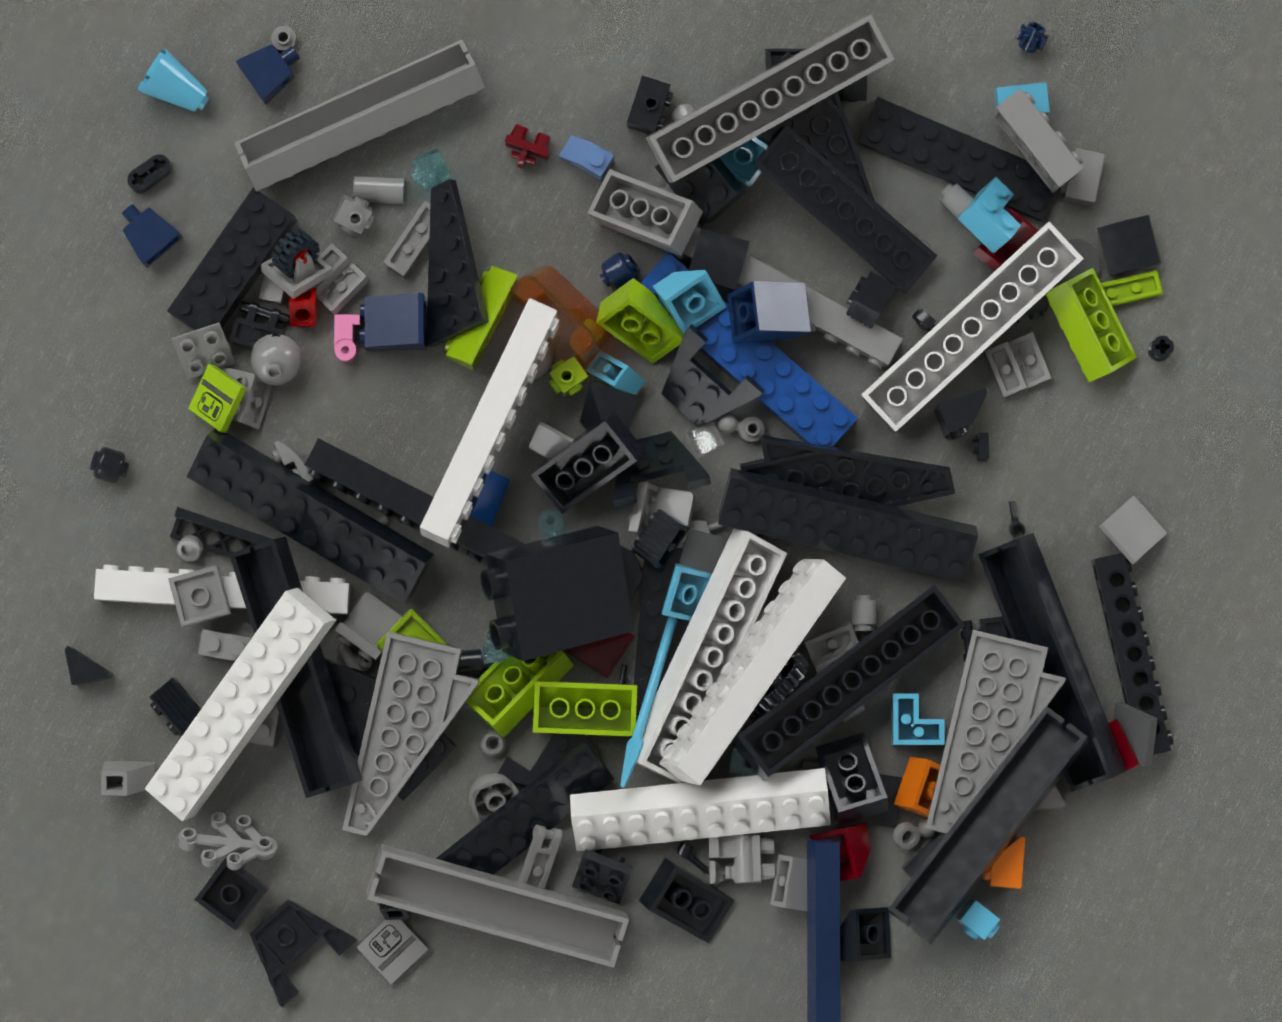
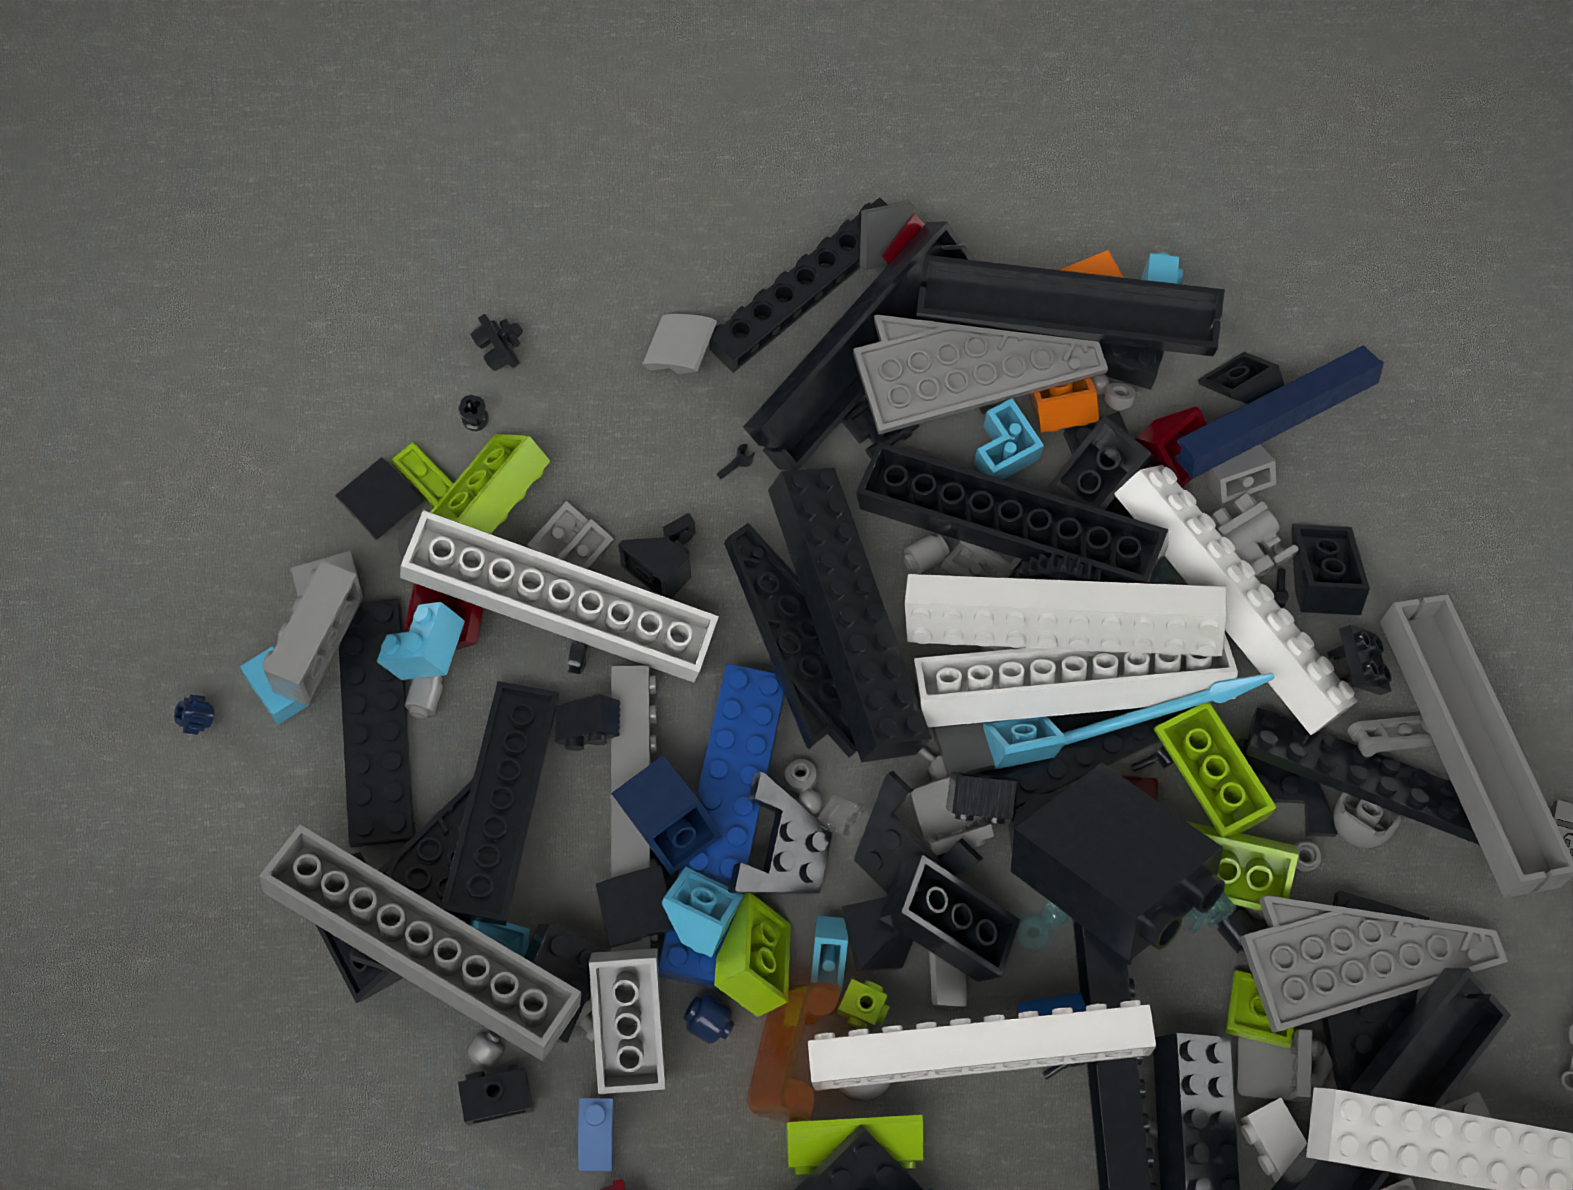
camera: 125 degrees left, 15 degrees down
(1210, 399) = (489, 333): none -> black hips

